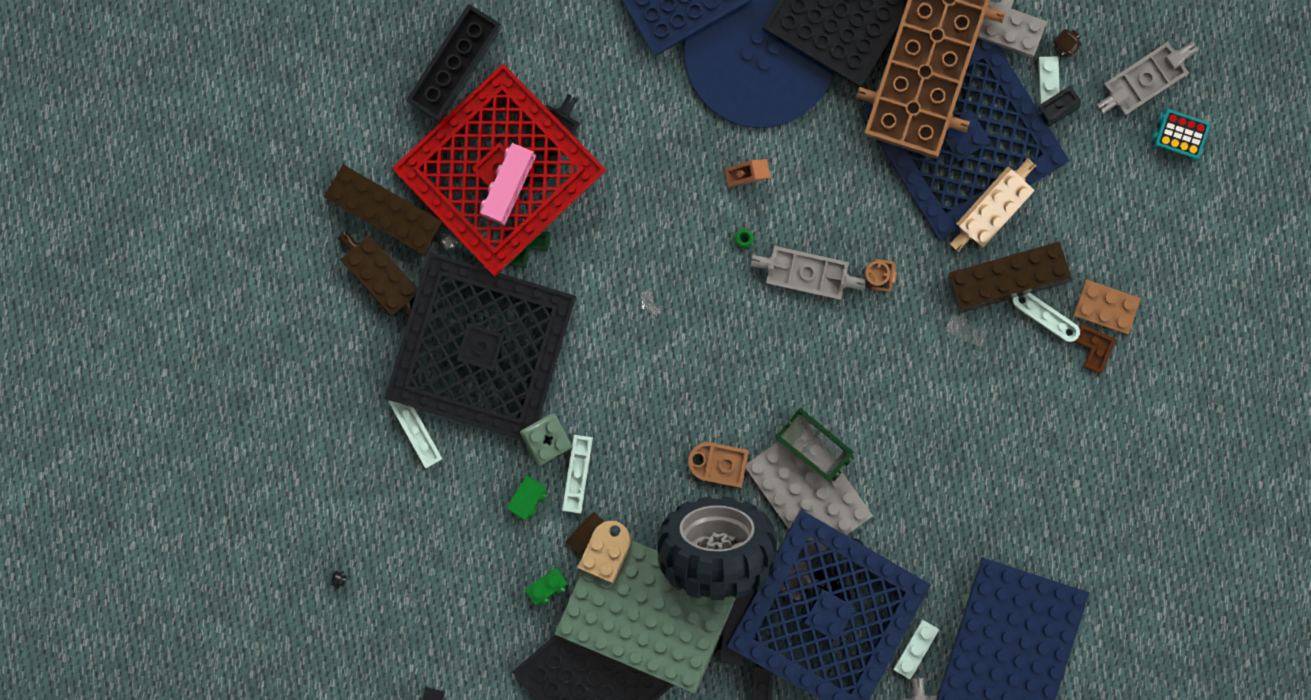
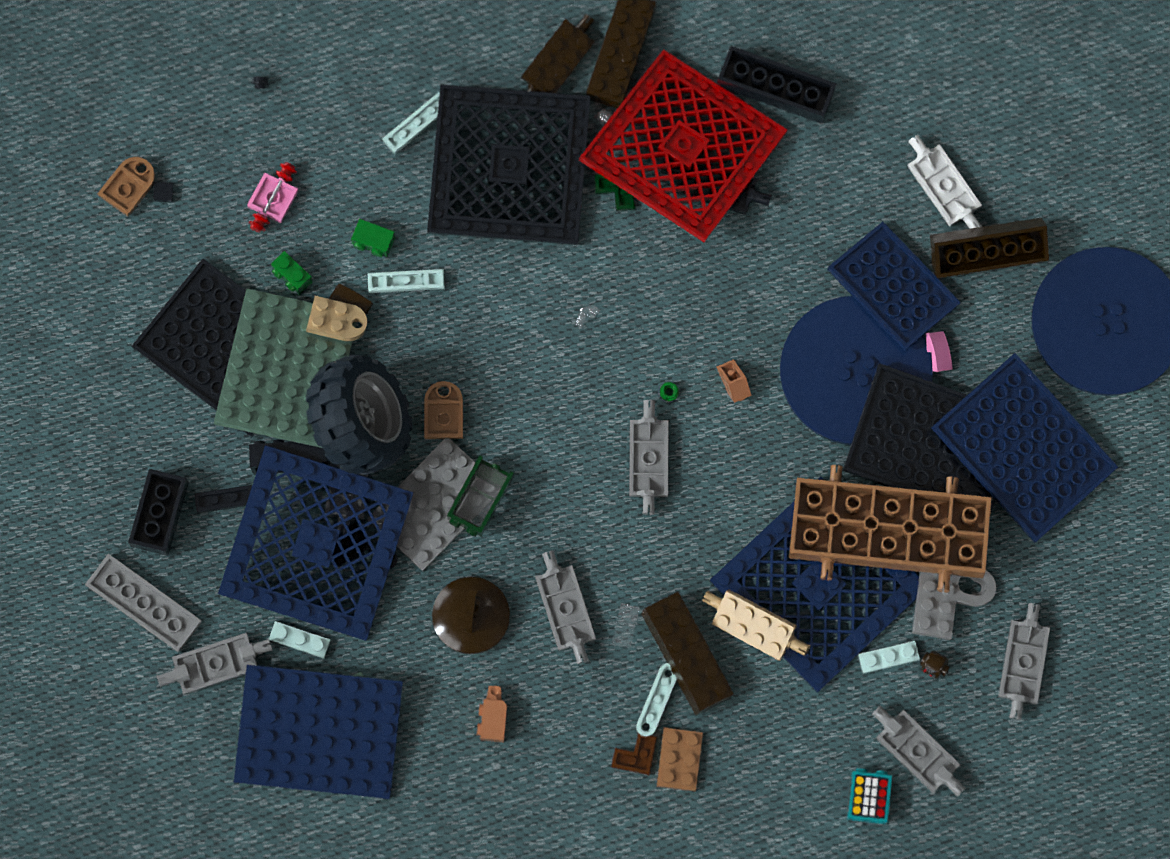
camera: 75 degrees right, 10 degrees down
(463, 590) = (272, 197): none -> bright pink plate
(507, 184) = (670, 152): bright pink brick -> none
(535, 435) = (420, 243): sand green brick -> none
(878, 273) = (662, 526): medium nougat piece -> none
(927, 478) = (471, 615): none -> dark brown bracket
(939, 385) = (565, 607): none -> light grey plate
(1030, 476) = (493, 716): none -> nougat hinge
(1060, 106) = (869, 669): black panel -> none

